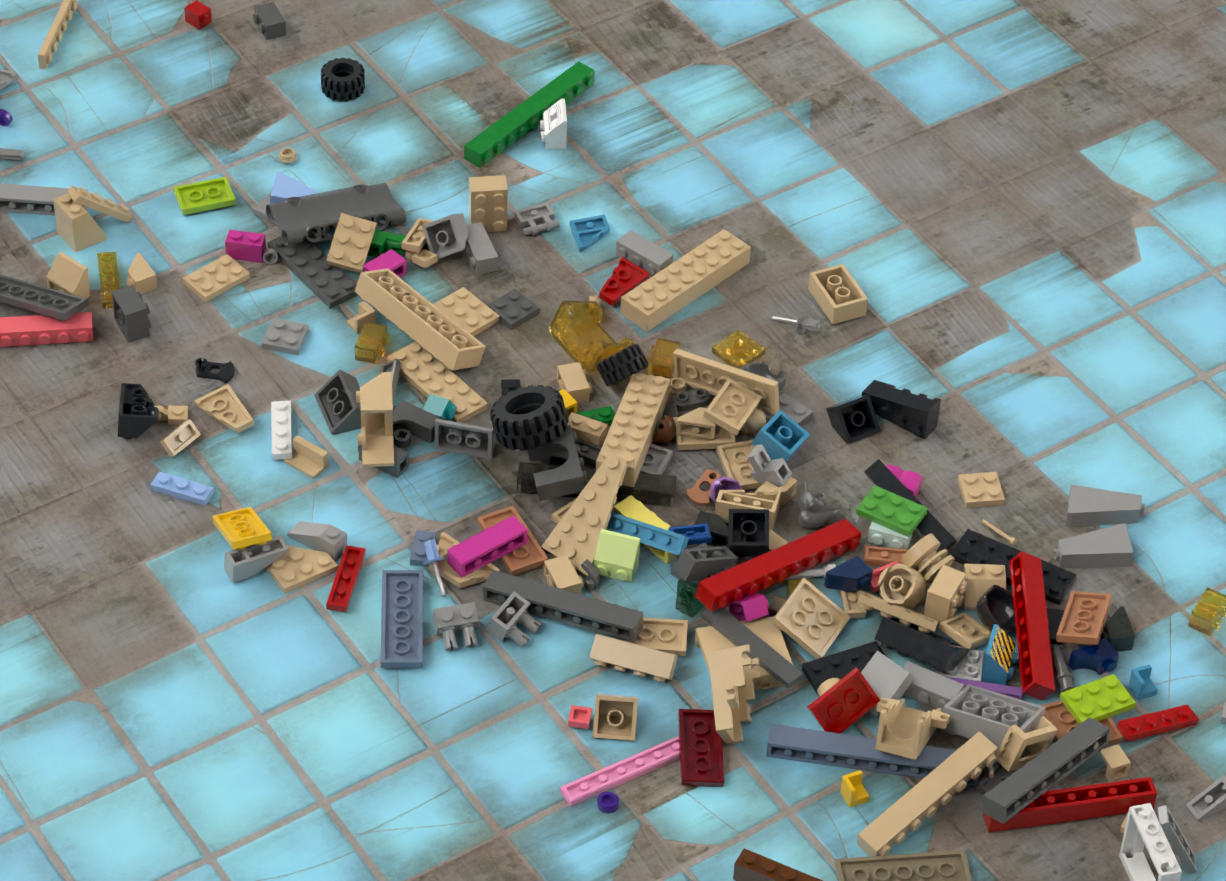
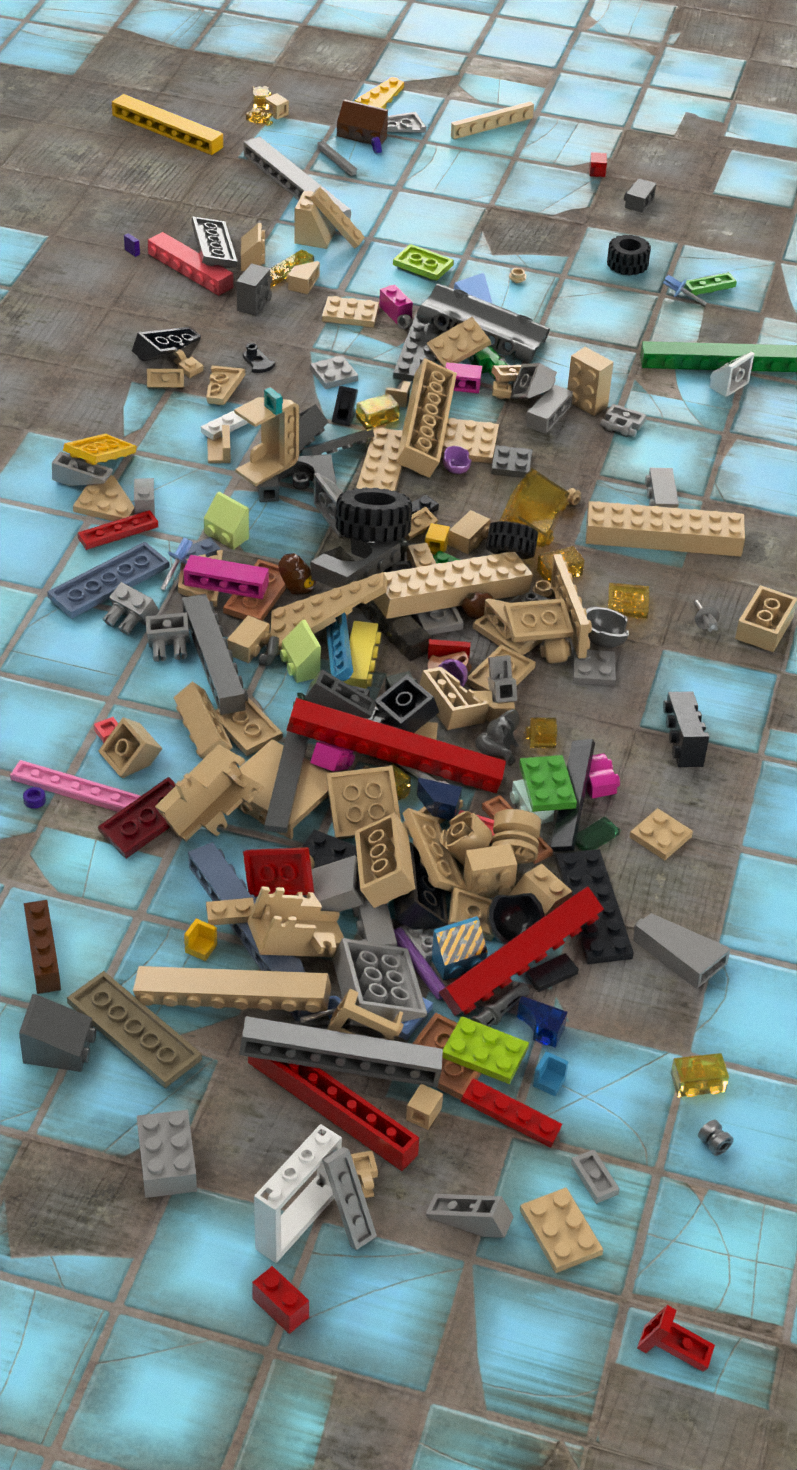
camera: 50 degrees right, 0 degrees up
(182, 488) = (120, 408): light blue plate -> none
(345, 355) = (345, 406): none -> black slope
(385, 381) = (273, 401): none -> teal plate
(416, 81) = (678, 287): none -> light blue piece
(416, 507) = (227, 521): none -> yellowish green slope
(428, 63) = (710, 283): none -> bright green plate
(440, 407) = (348, 477): brick -> none
(485, 336) = (456, 460): none -> medium lavender hair
(524, 505) = (296, 574): none -> reddish brown piece
(589, 230) = (648, 452): dark azure wing -> none
(623, 280) = (624, 495): red wing -> none
(690, 477) = (444, 647): none -> red tile
(701, 537) = (369, 681): blue tile -> none
(781, 437) = (550, 673): dark azure brick -> none
(829, 482) = (542, 732): none -> clear yellow brick
(853, 753) = (229, 911): none -> tan plate
(854, 418) = (637, 707): black slope -> none
(895, 637) = (384, 860): none -> tan brick
(951, 520) = (597, 834): none -> clear green tile
(1012, 540) = (625, 888): tan piece -> none
(1084, 618) = (576, 983): nougat plate -> none
(1102, 507) = (737, 924): light grey slope -> none
(1119, 631) = (595, 1020): pearl dark grey slope -> none

